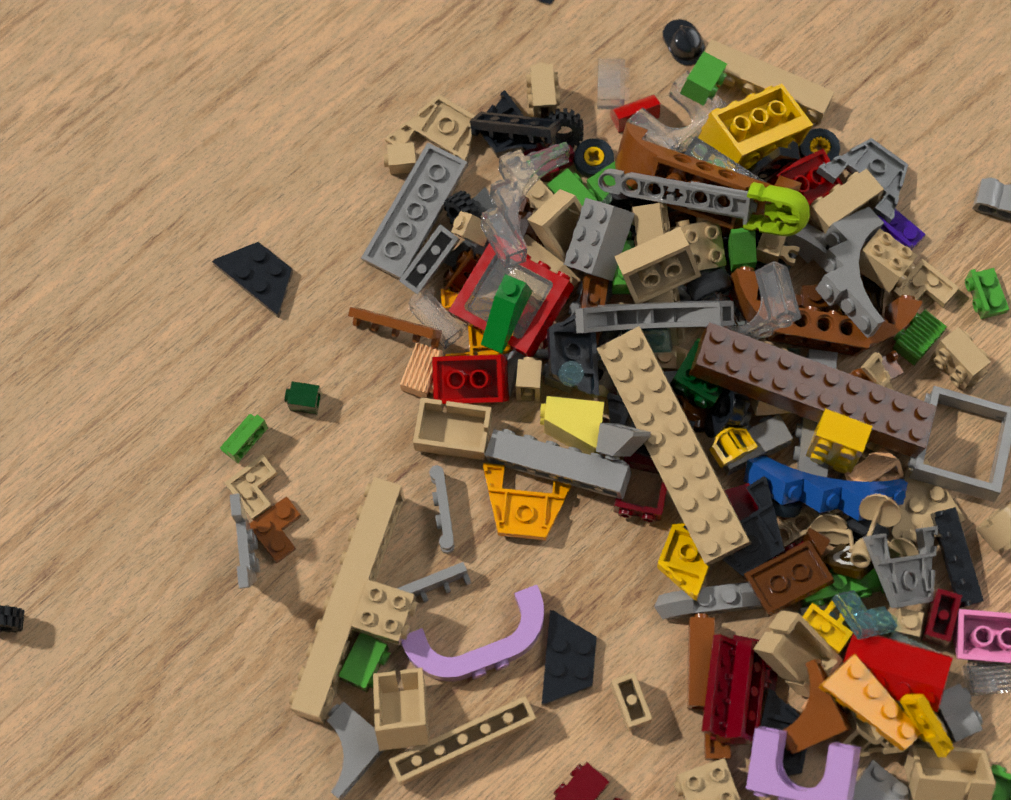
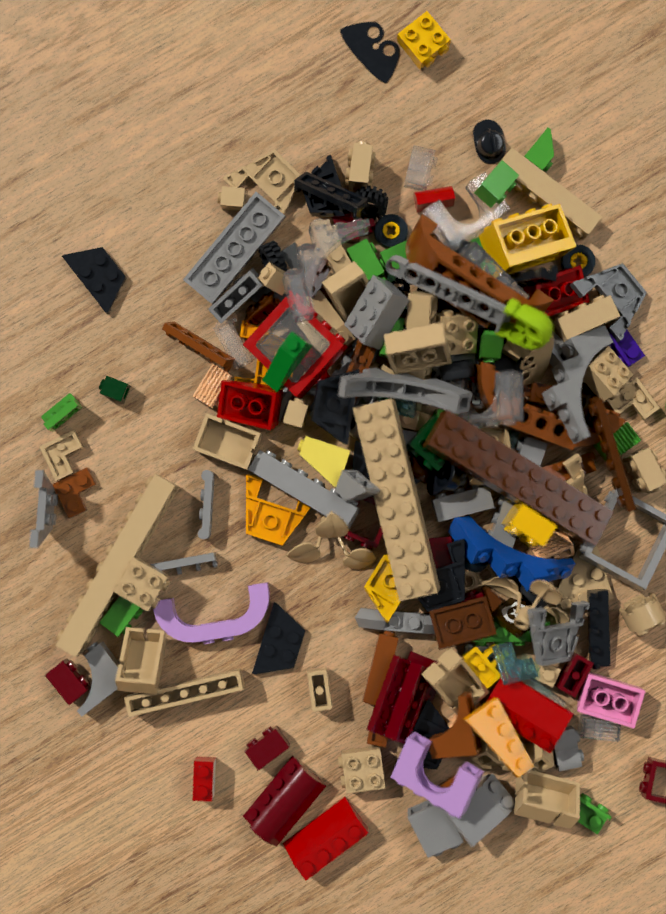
camera: 10 degrees right, 15 degrees up
(312, 760) = (68, 681): none -> dark red brick
(571, 373) = (328, 424): clear light blue tile -> none
(600, 493) = (331, 527): none -> tan plant
(732, 445) = (444, 505): yellow piece -> none
(747, 37) = (542, 151): none -> bright green slope
(804, 246) = (541, 360): none -> tan piece
(919, 346) = (613, 460): none -> reddish brown plate
(923, 717) = (541, 764): yellow hinge -> none

